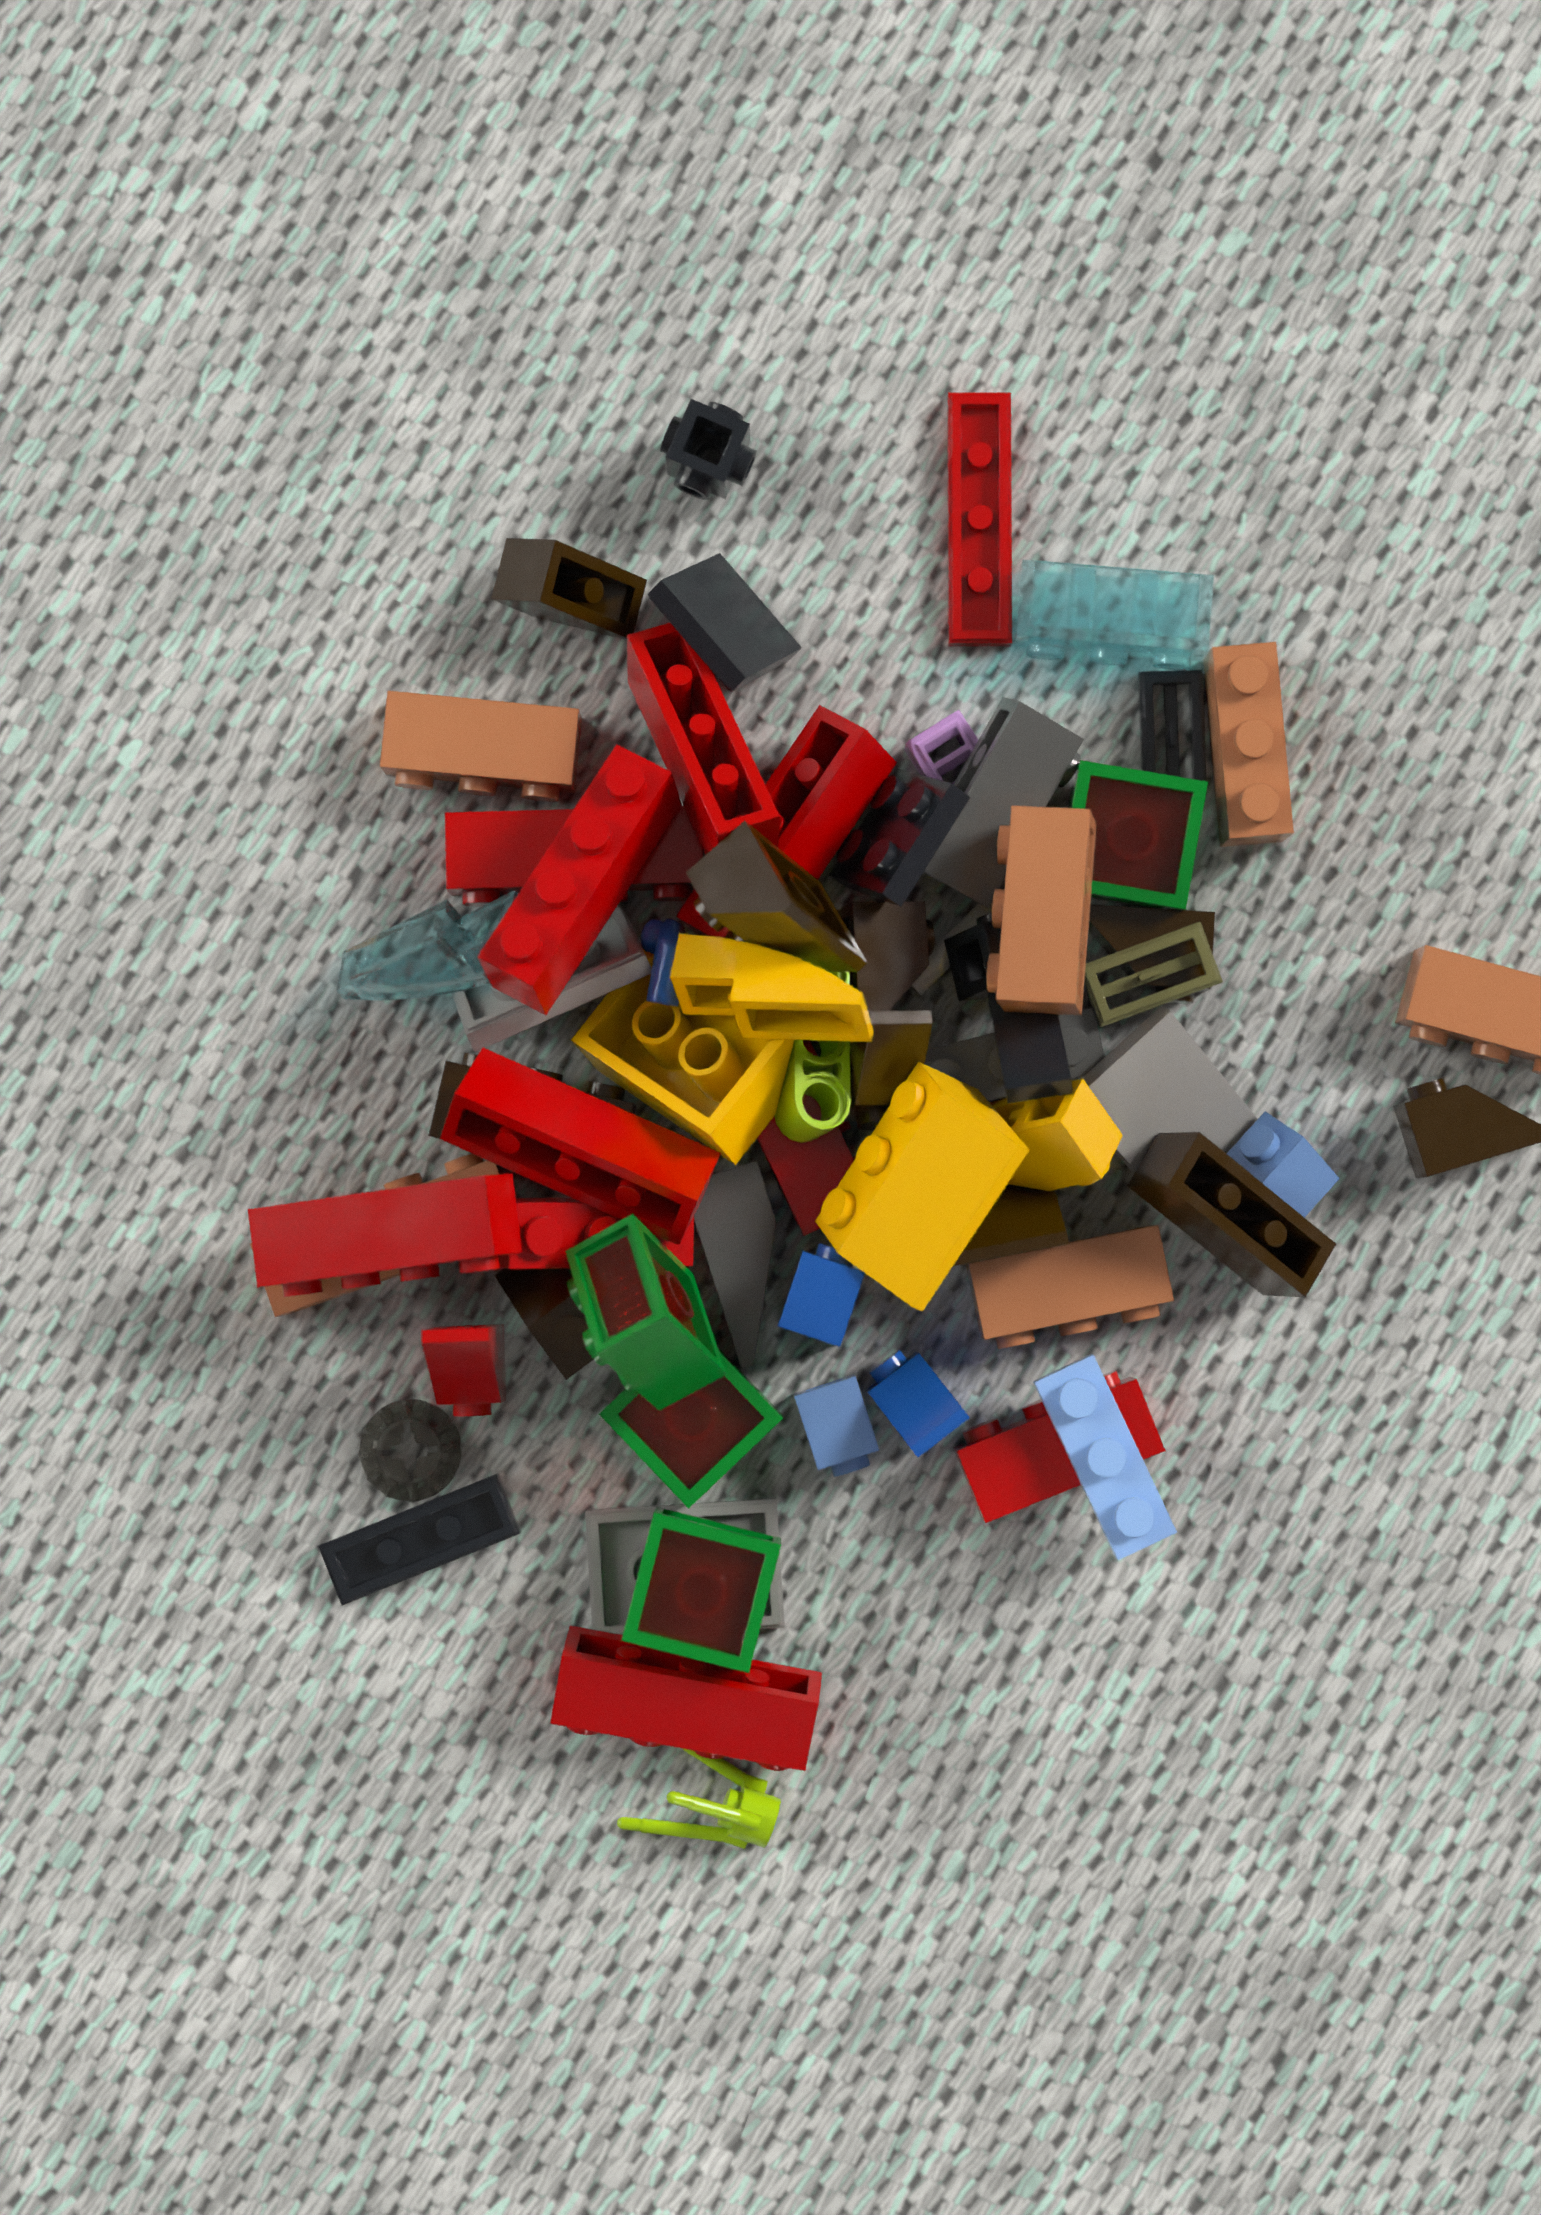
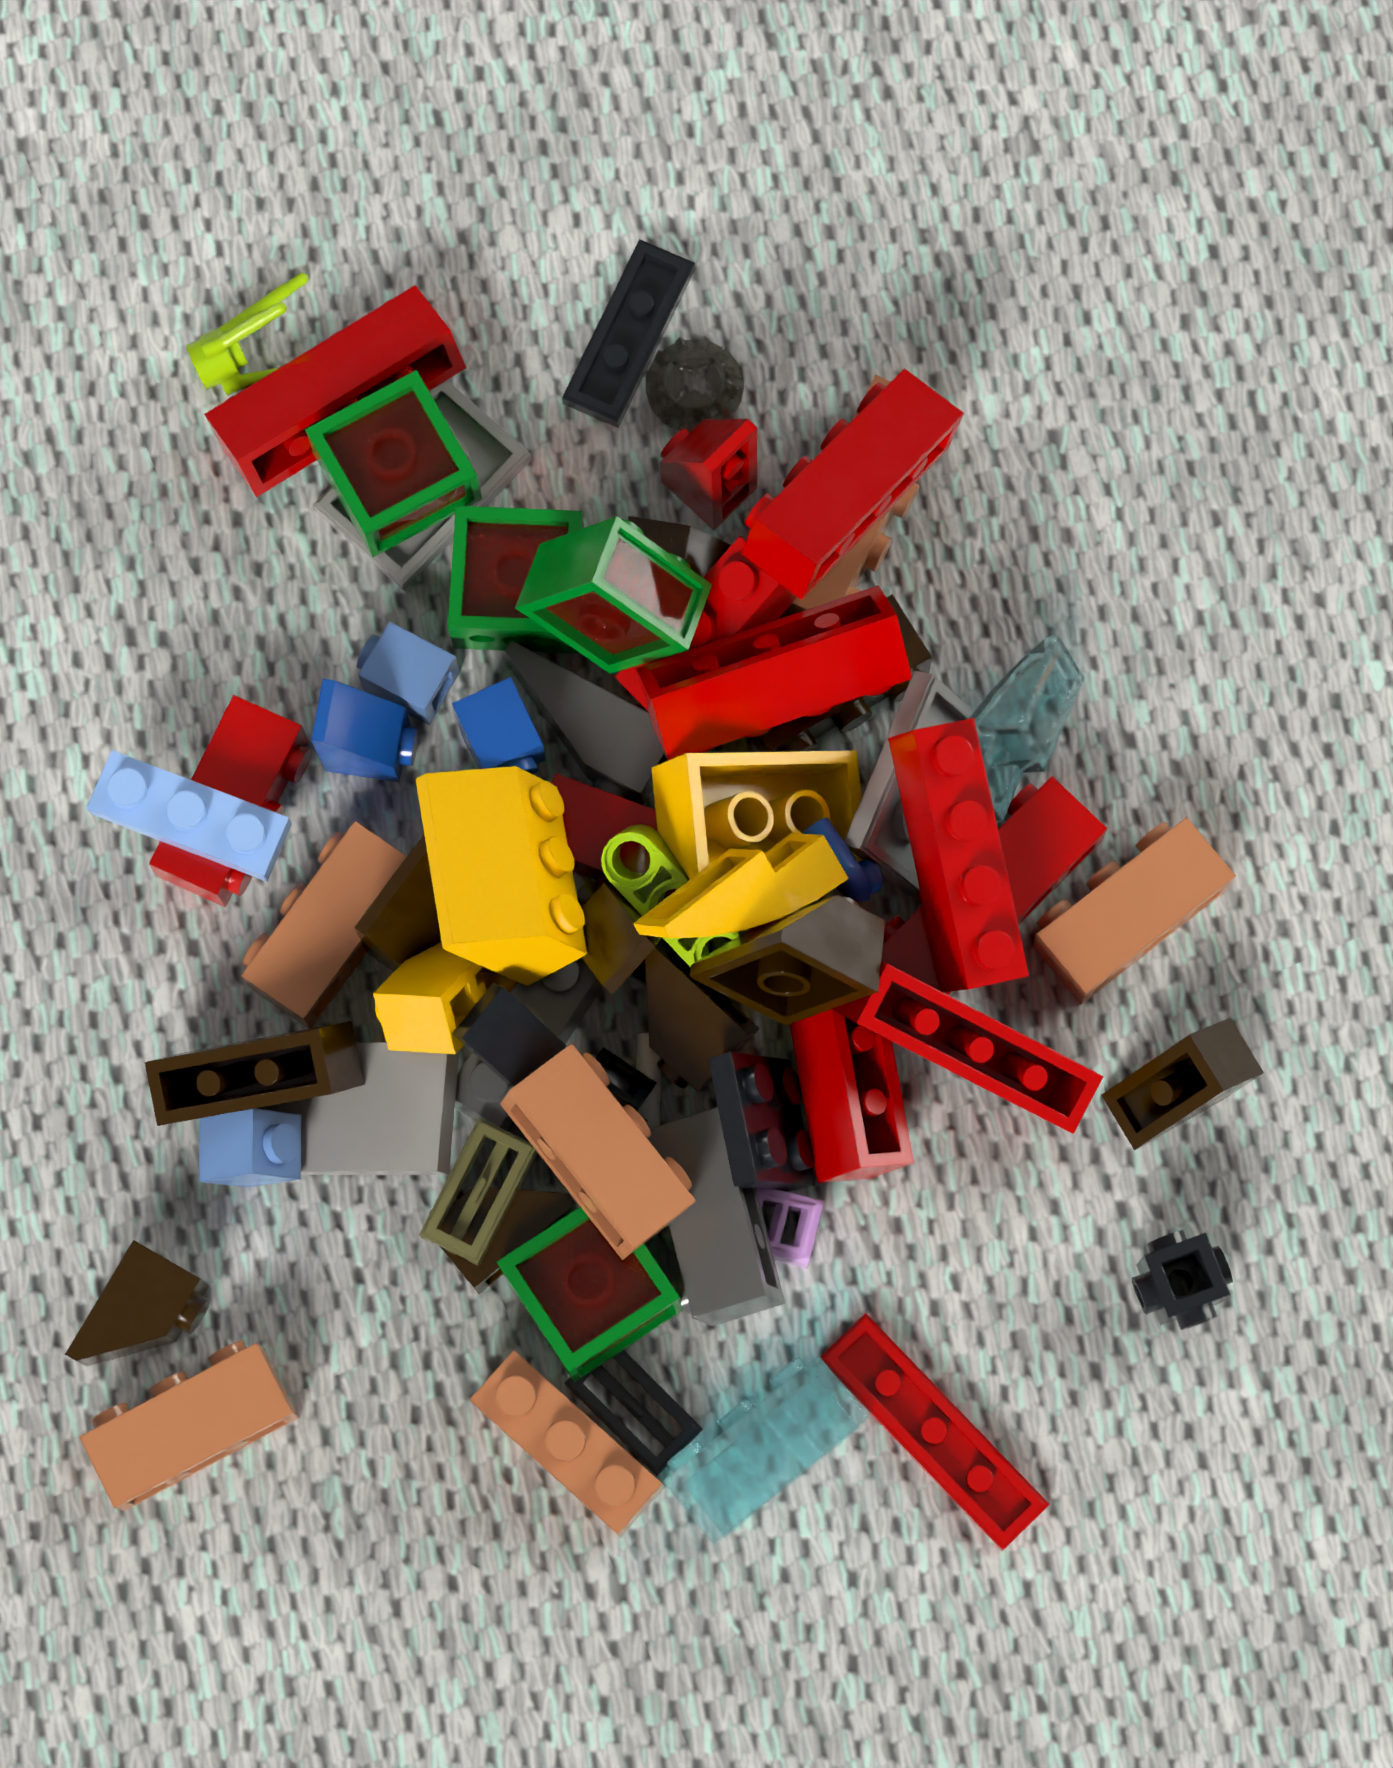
camera: 140 degrees right, 10 degrees down
(724, 621) = (1043, 1160): black tile -> none

